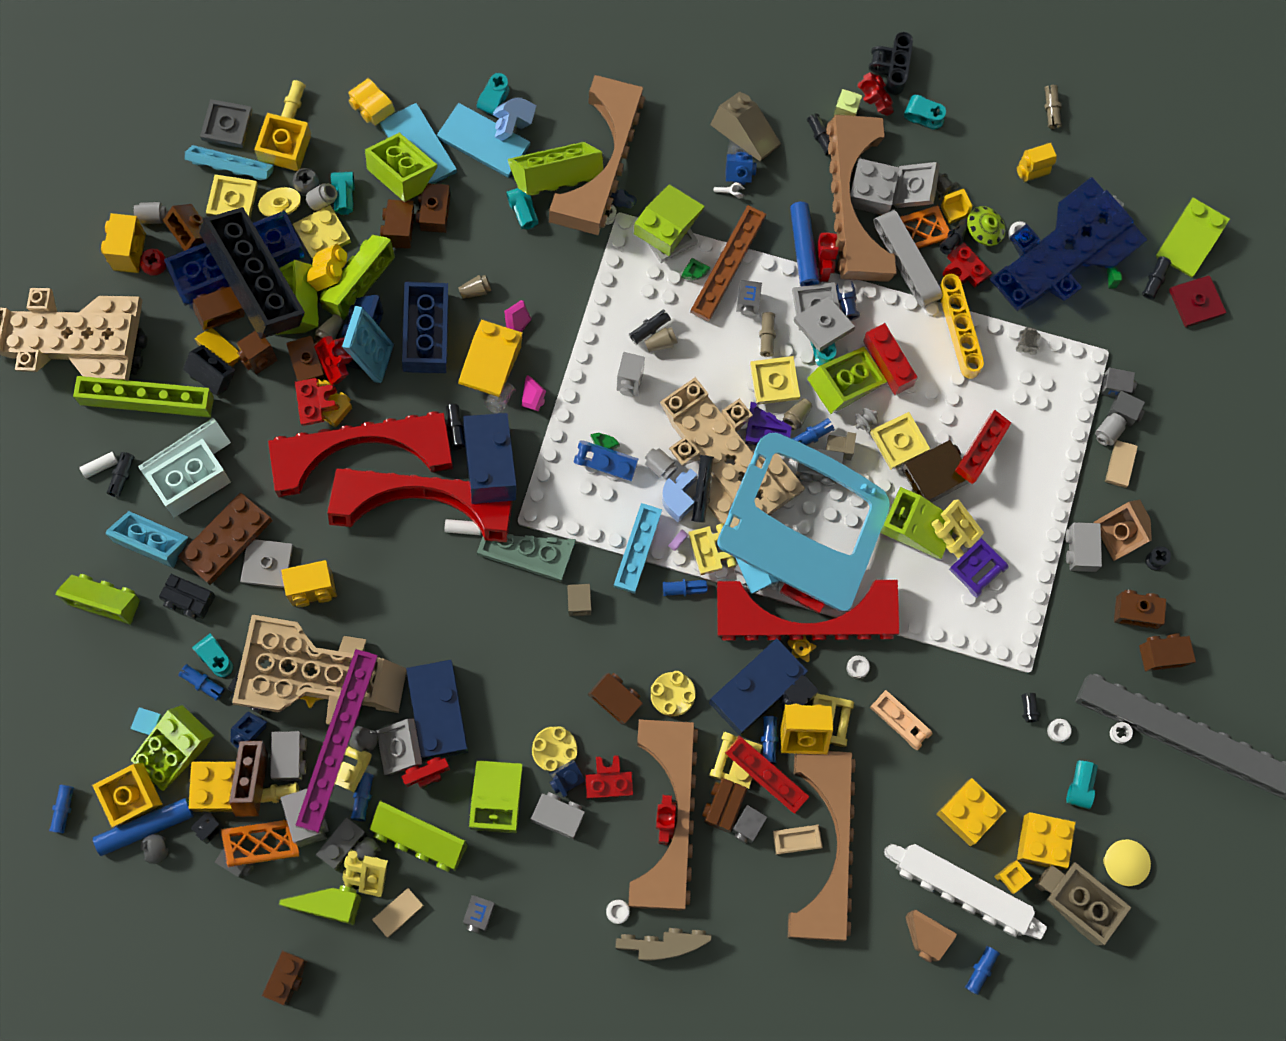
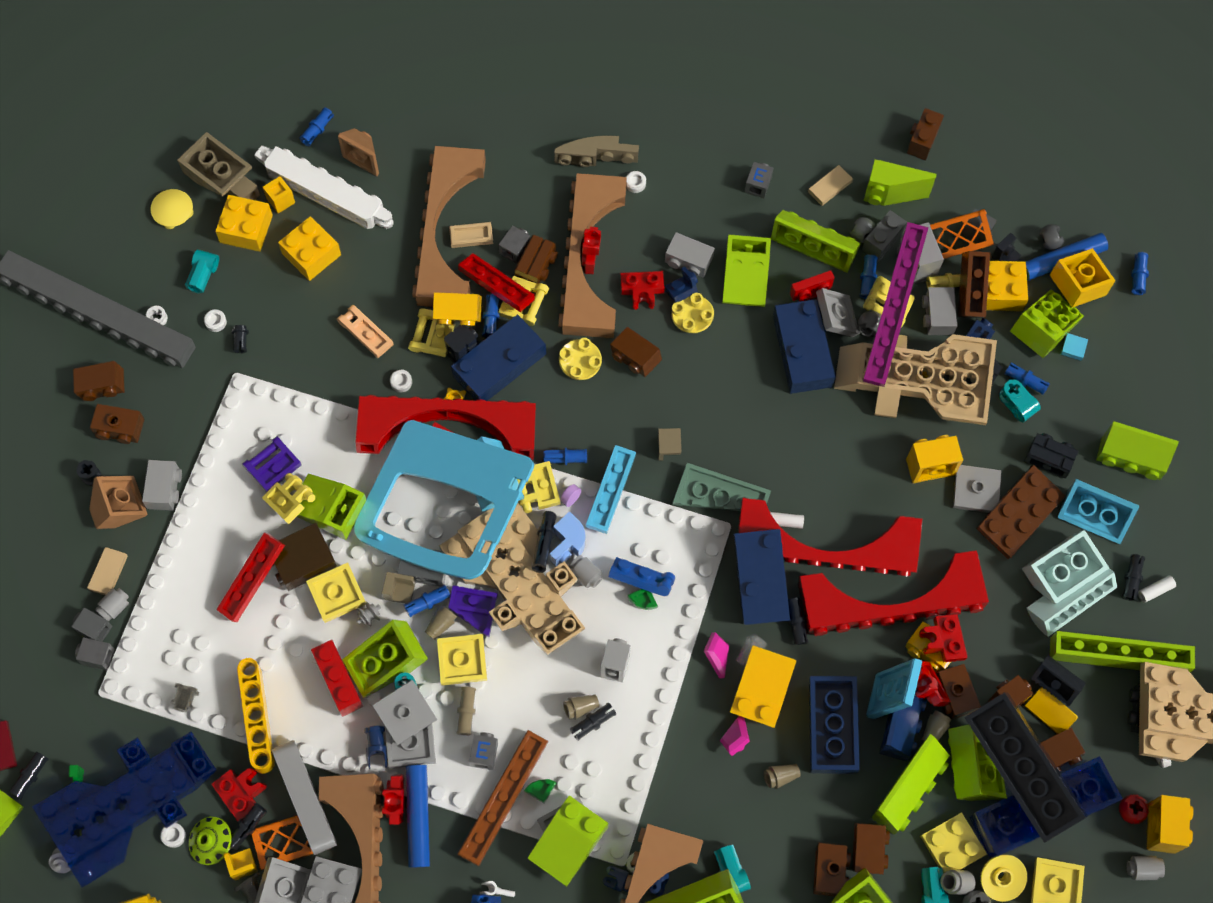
camera: 175 degrees left, 5 degrees down
(185, 225) = (1100, 845): reddish brown brick -> none
(327, 267) = (944, 792): yellow brick -> none
(372, 874) = (855, 207): light yellow plate -> none

